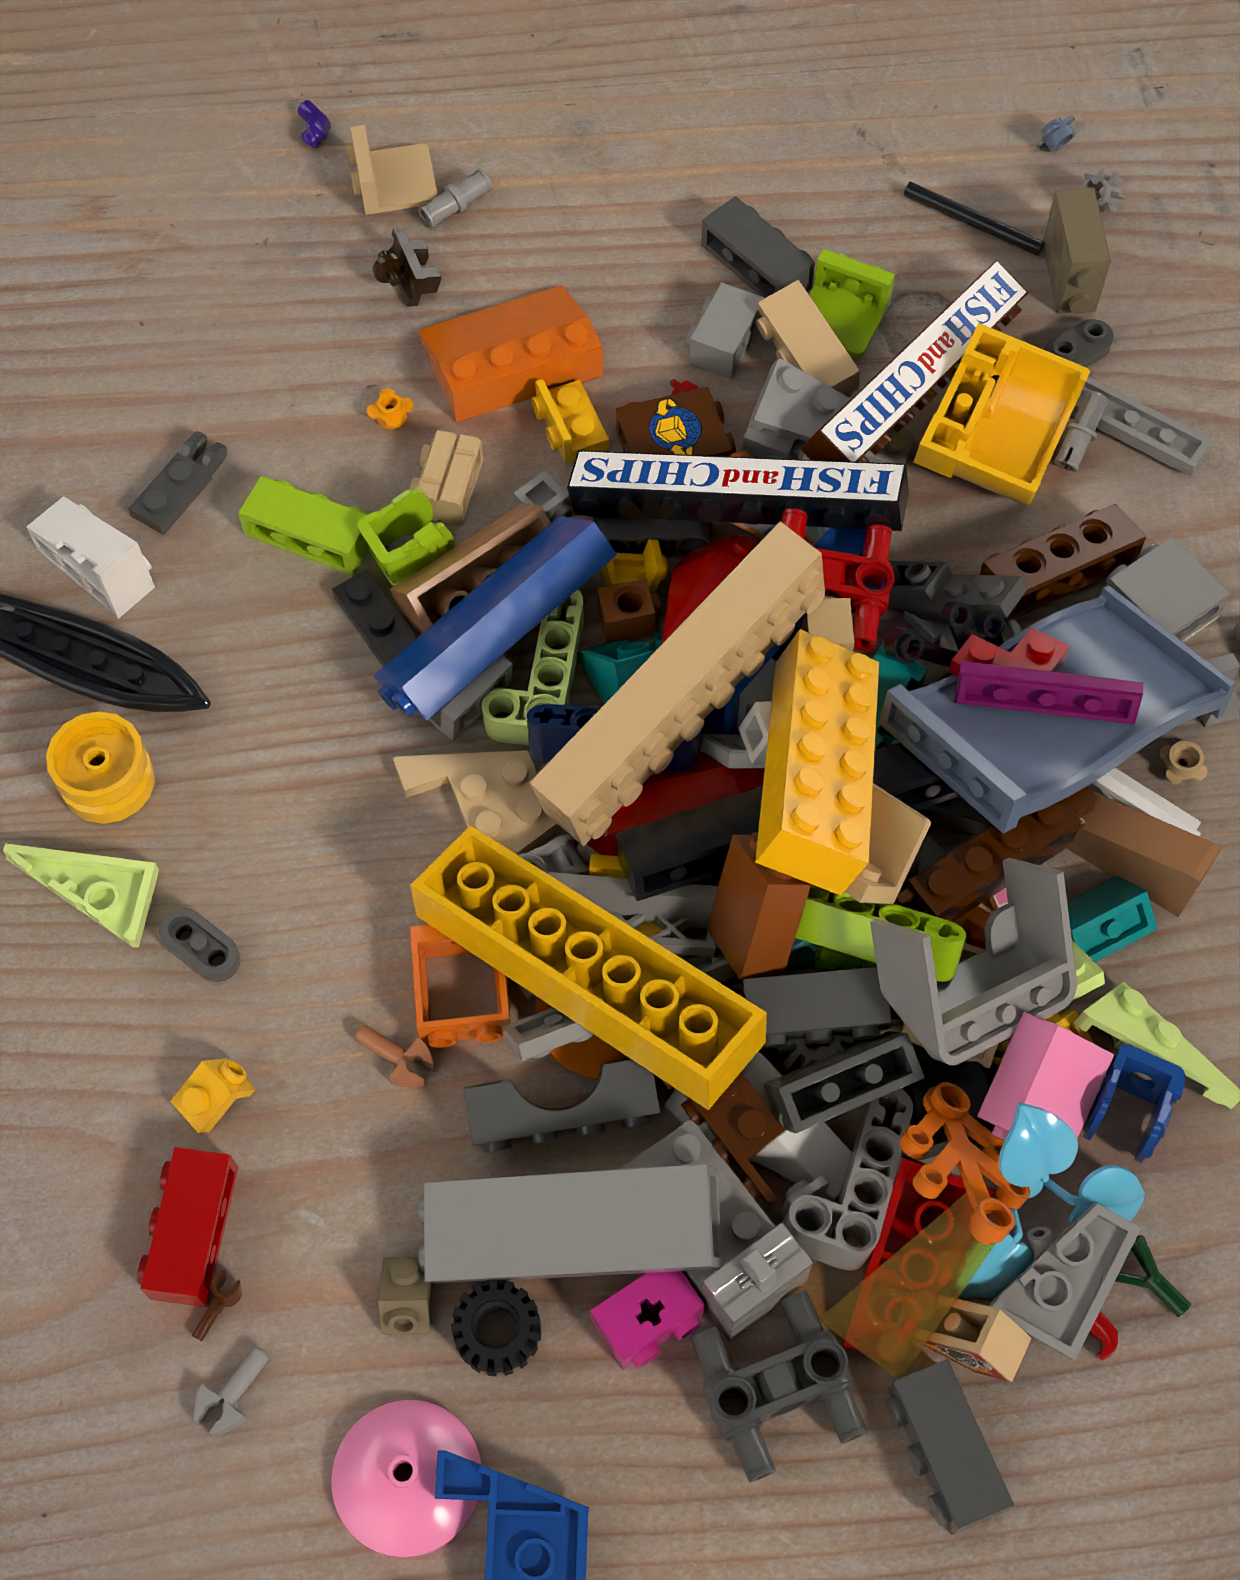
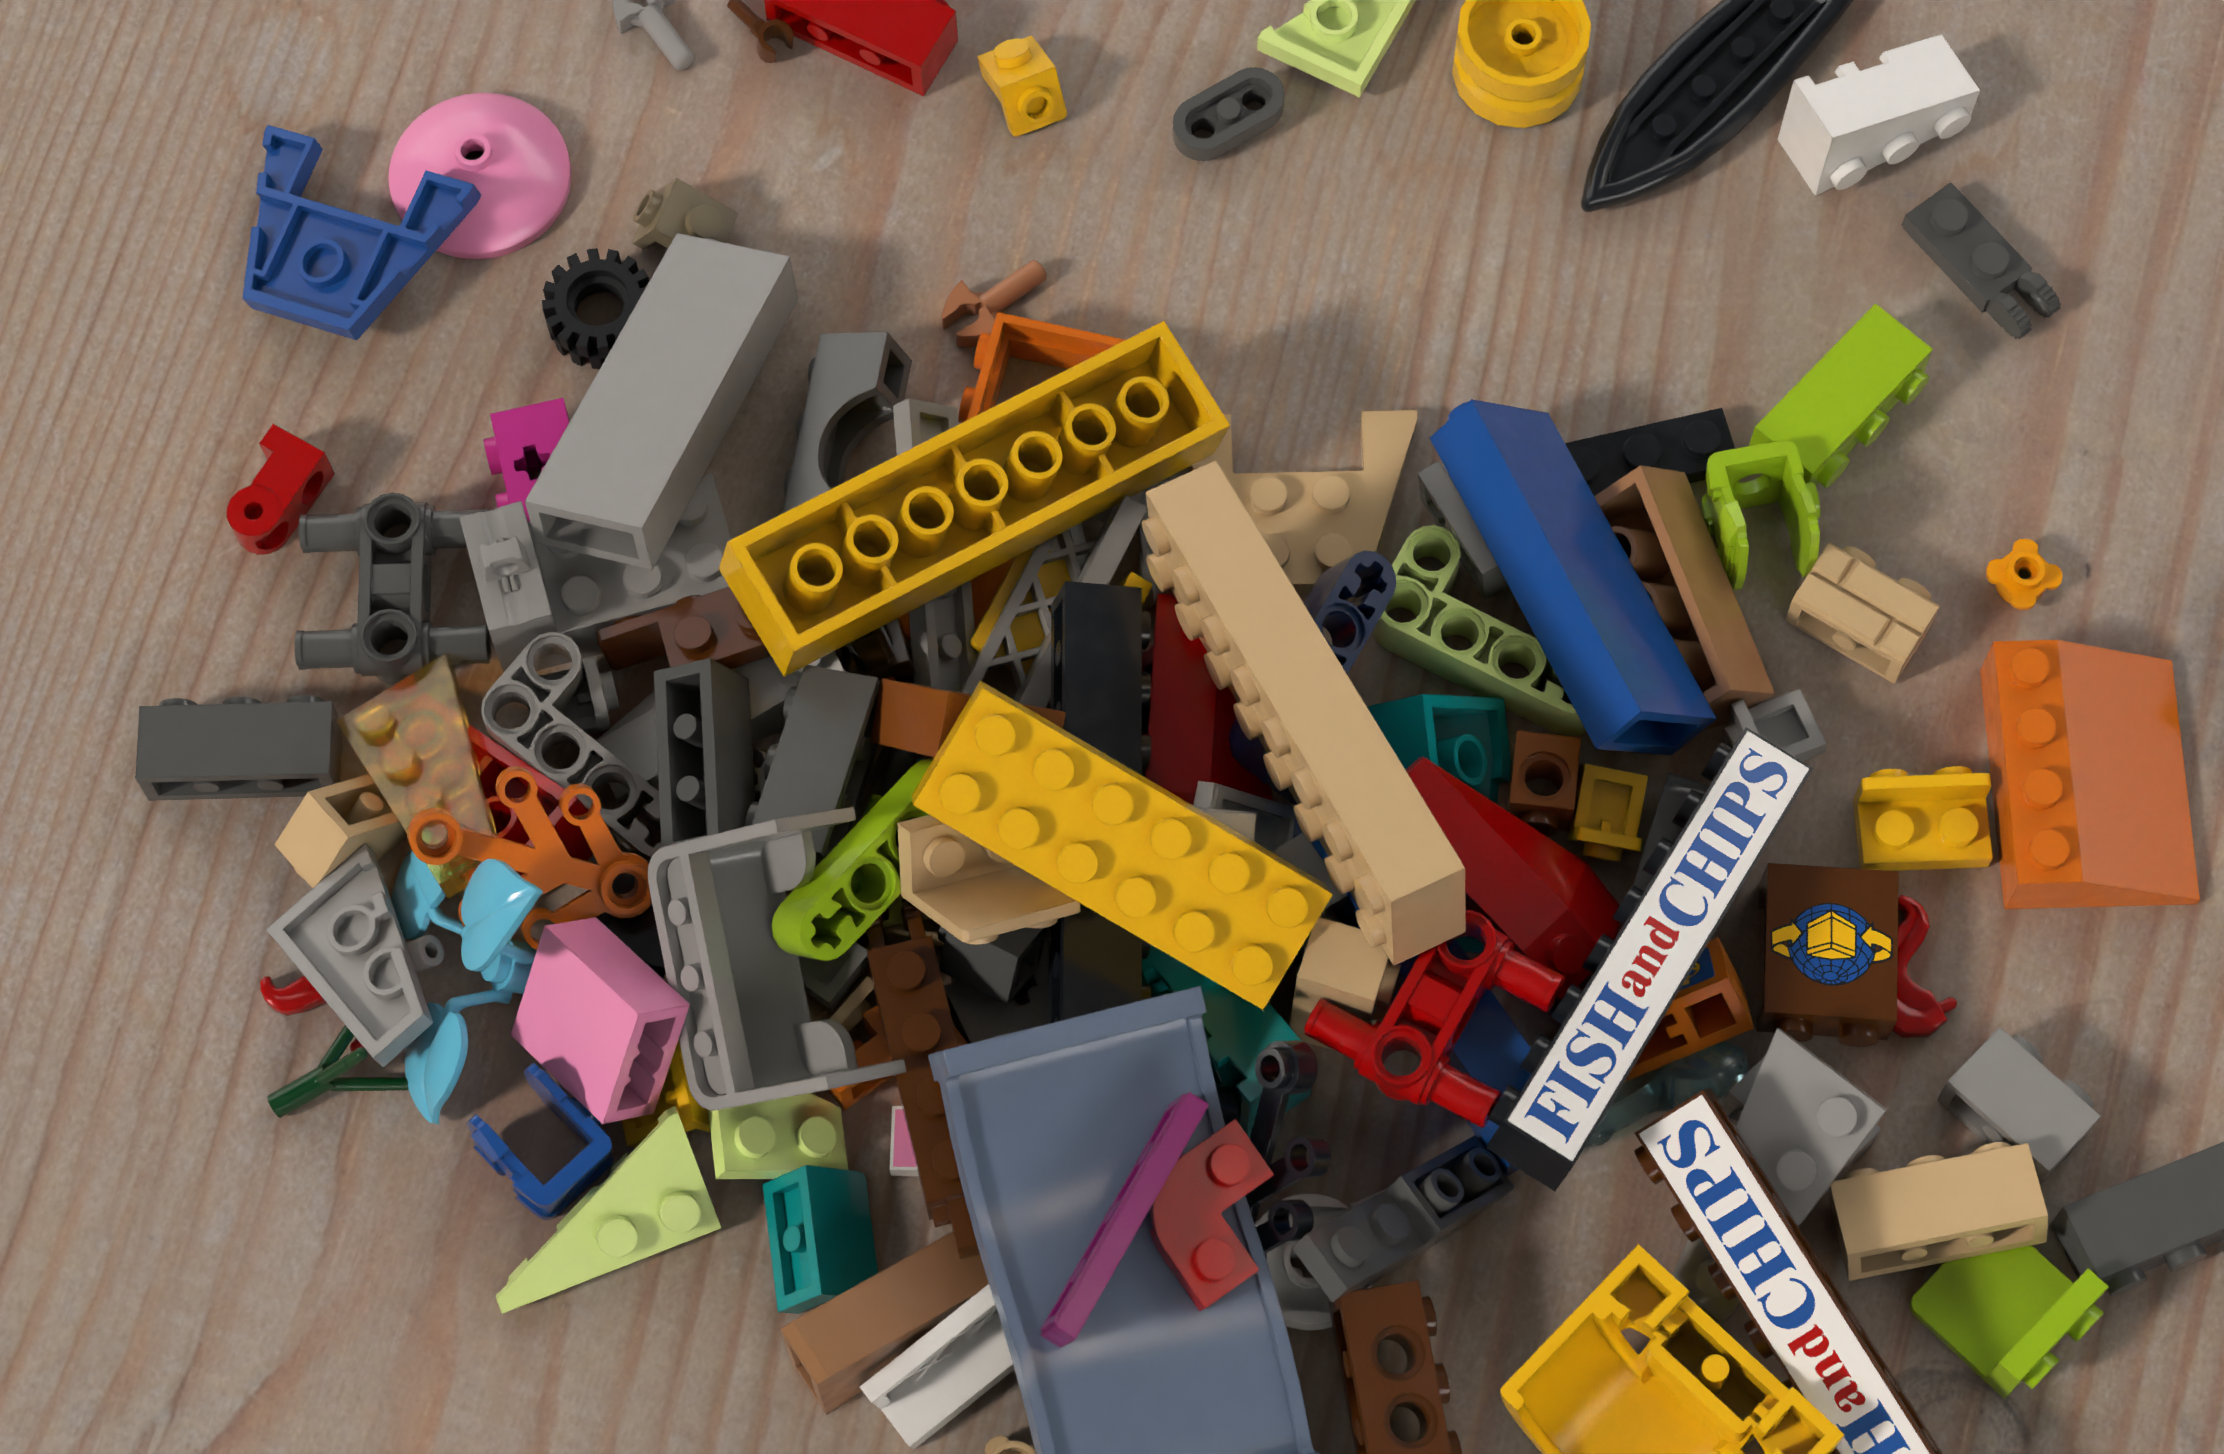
camera: 110 degrees right, 5 degrees up
(735, 1509) = (283, 489): none -> red leg

